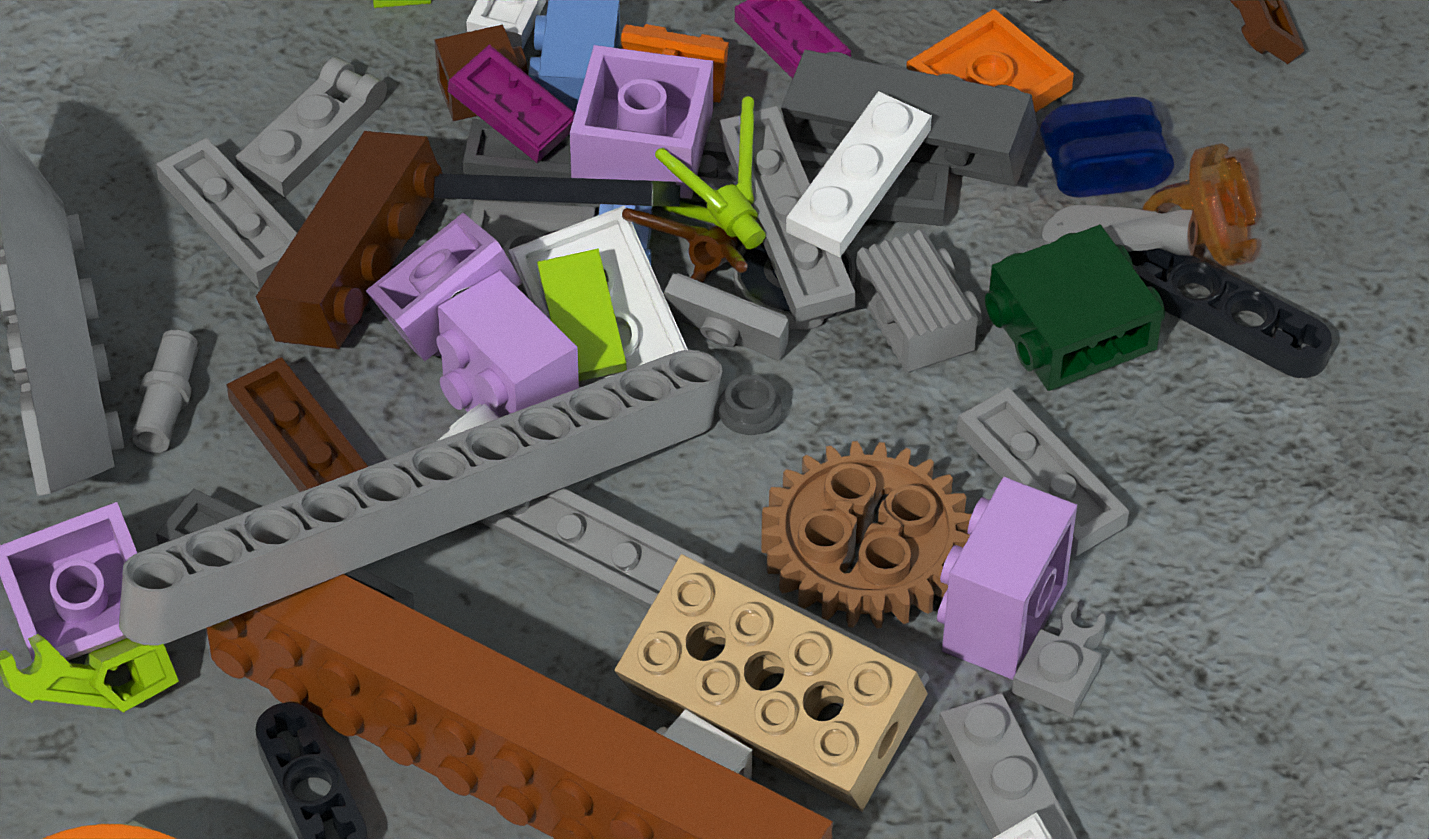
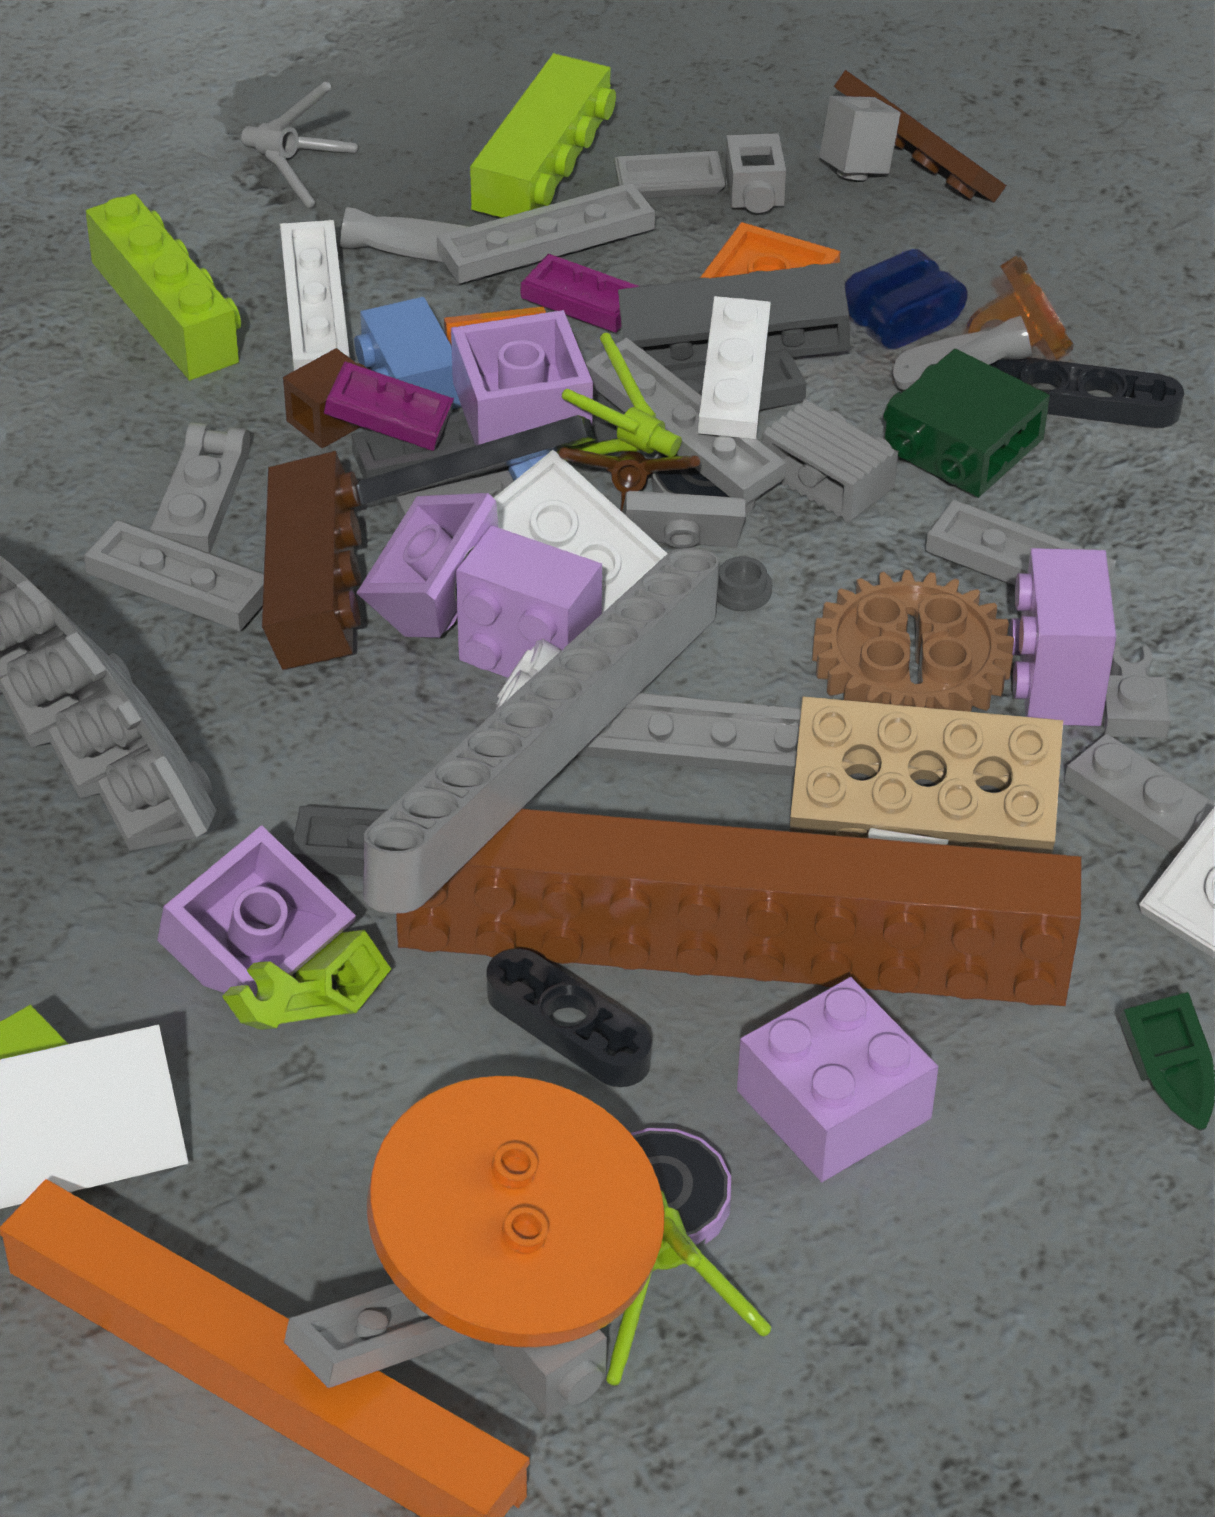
camera: 25 degrees left, 5 degrees down
(165, 391) = (213, 738): light grey pin -> none
(293, 426) = (361, 732): reddish brown plate -> none
(583, 311) = (558, 524): lime tile -> none

